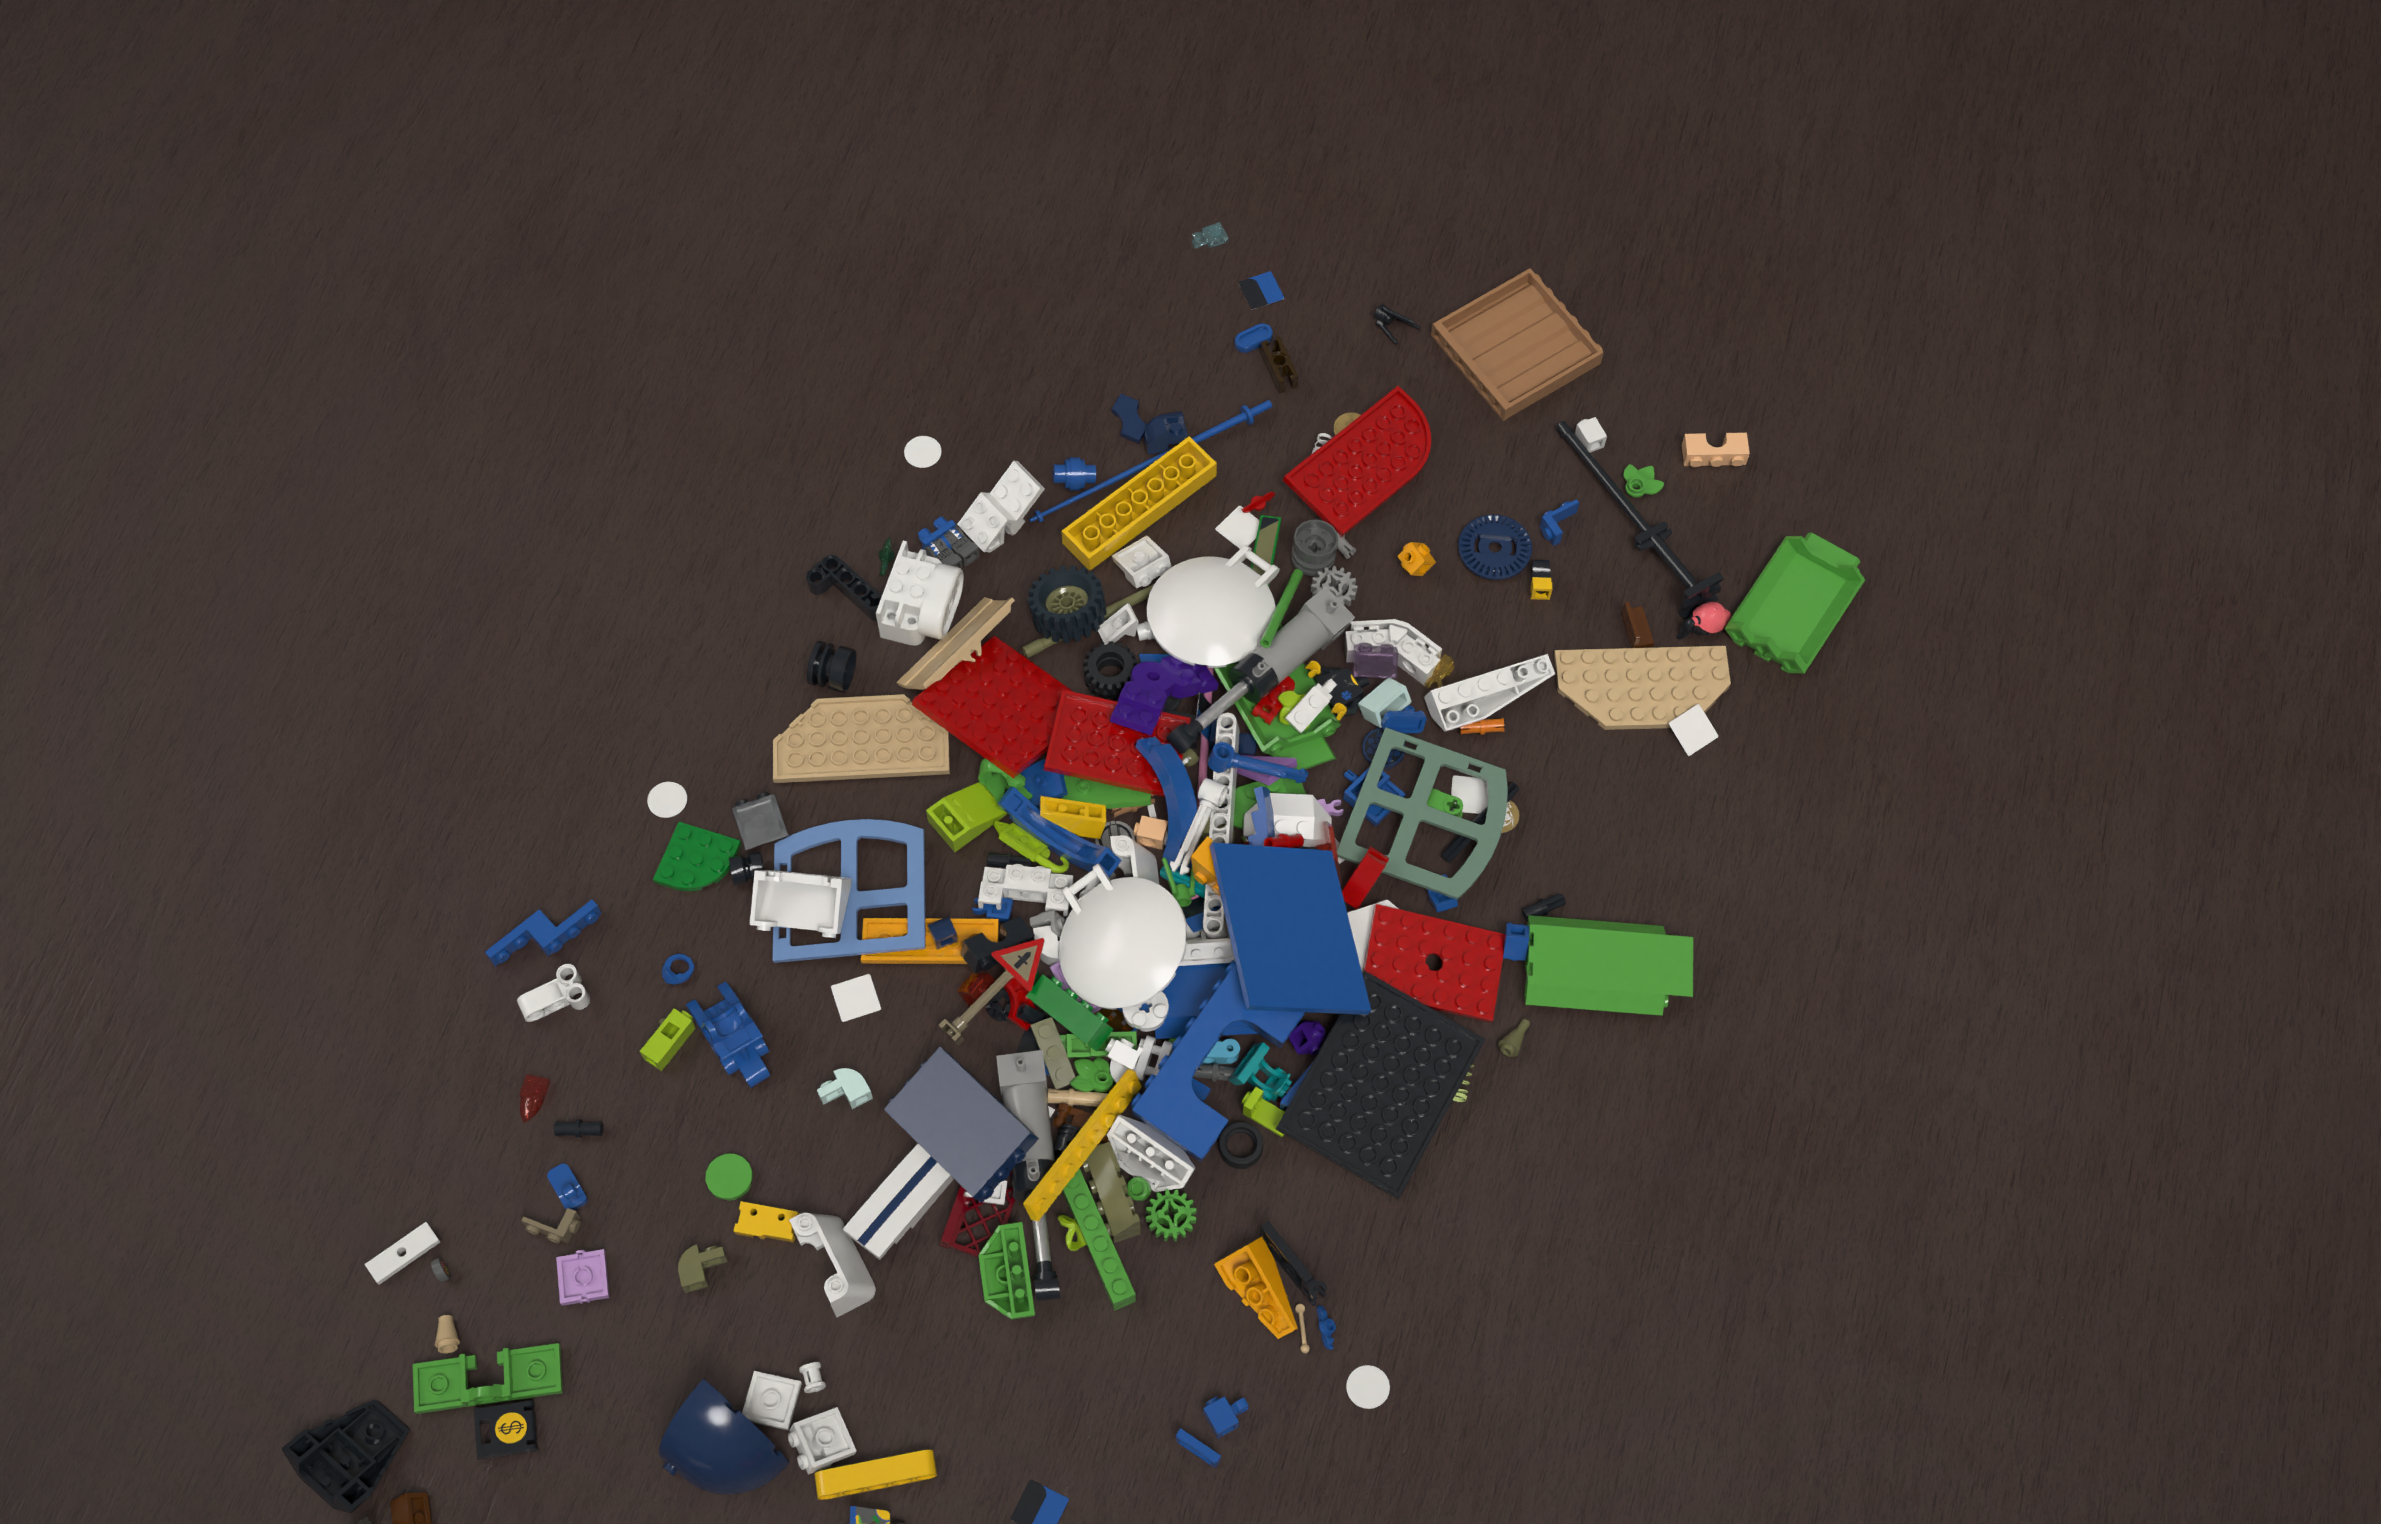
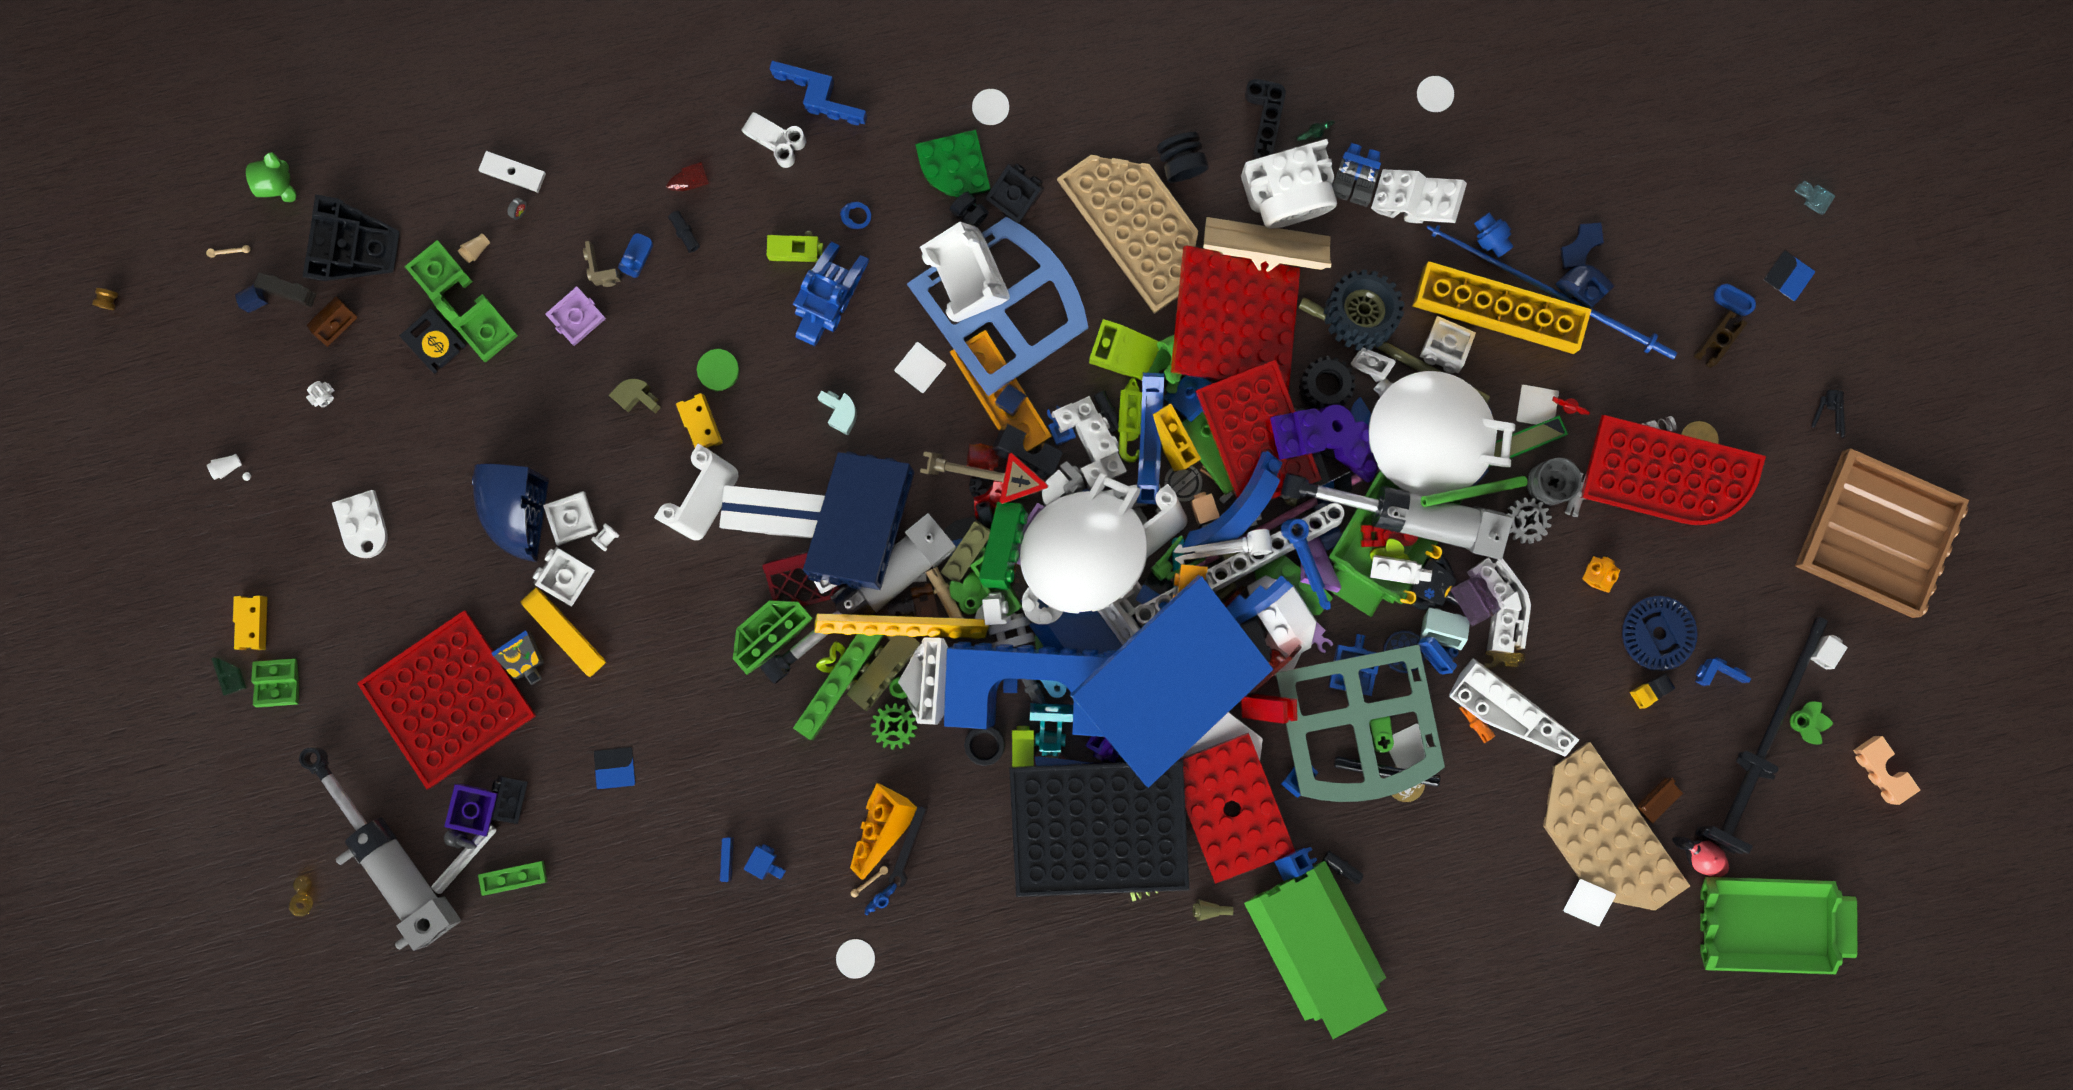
camera: 60 degrees right, 20 degrees up
(230, 1488) = (270, 178): none -> bright green piece
(1285, 840) = (1253, 626): red pin -> none

